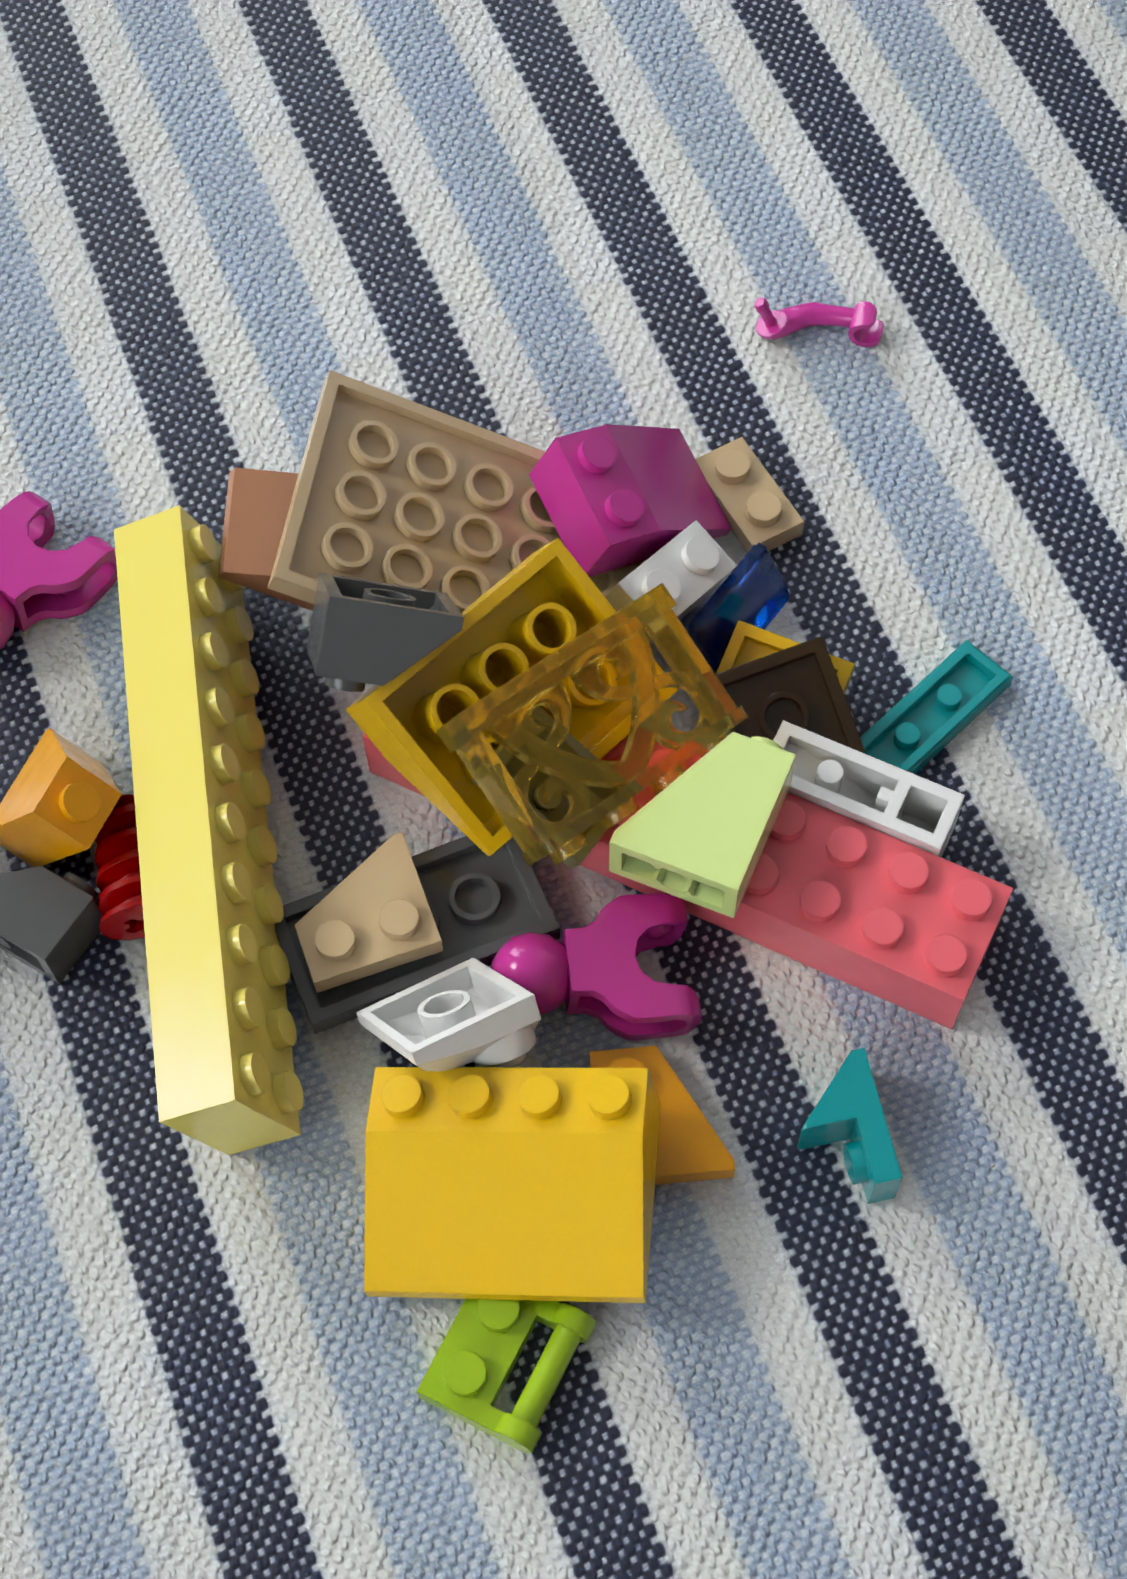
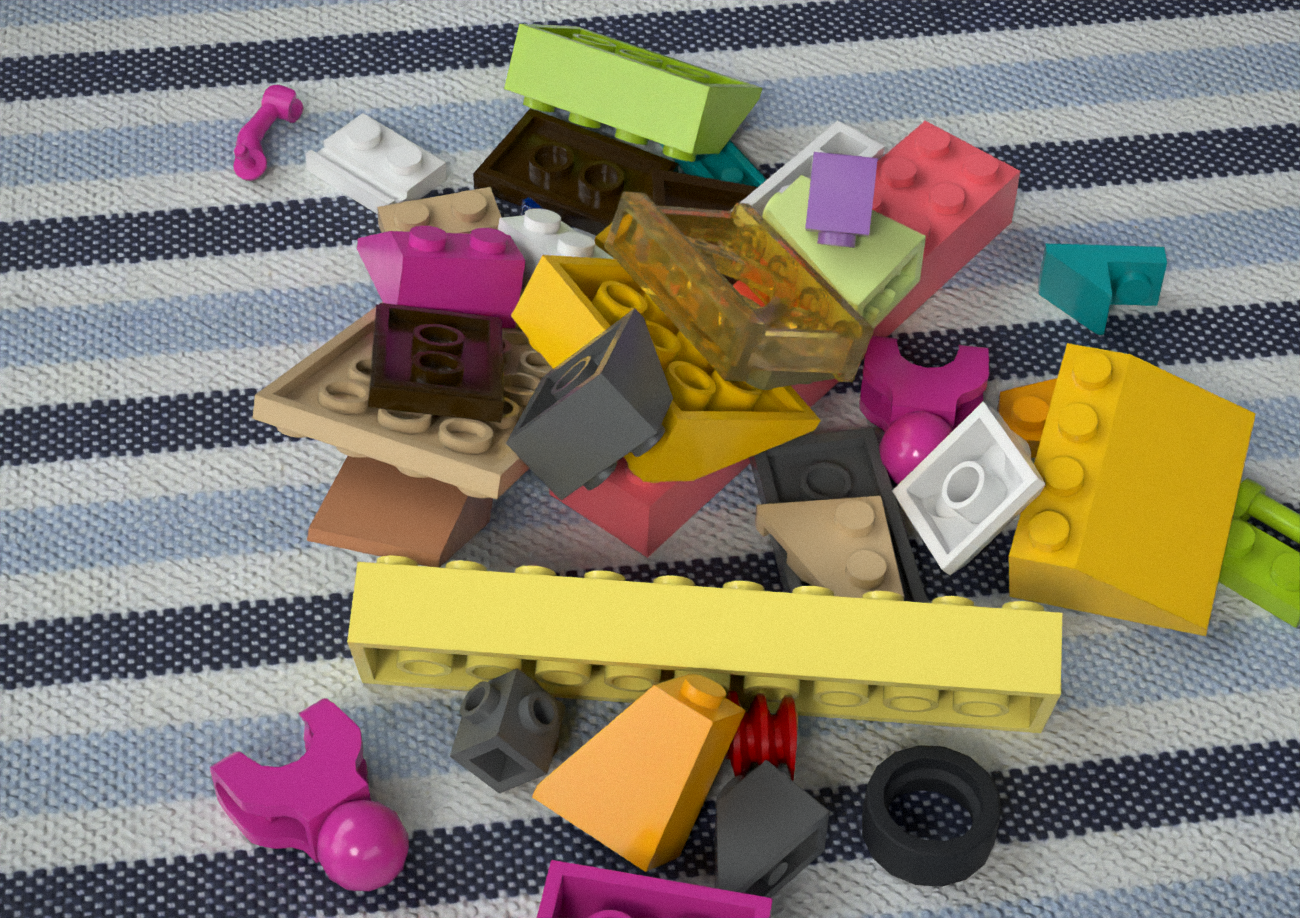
camera: 80 degrees left, 15 degrees down
(65, 1017) = (938, 771): none -> black tyre
(96, 694) = (508, 731): none -> dark grey brick
(451, 507) = (437, 363): none -> dark brown tile
(740, 784) = (841, 198): none -> medium lavender slope
(810, 424) = (375, 164): none -> white plate
(864, 590) = (566, 170): none -> dark brown tile
(985, 603) = (628, 89): none -> lime slope

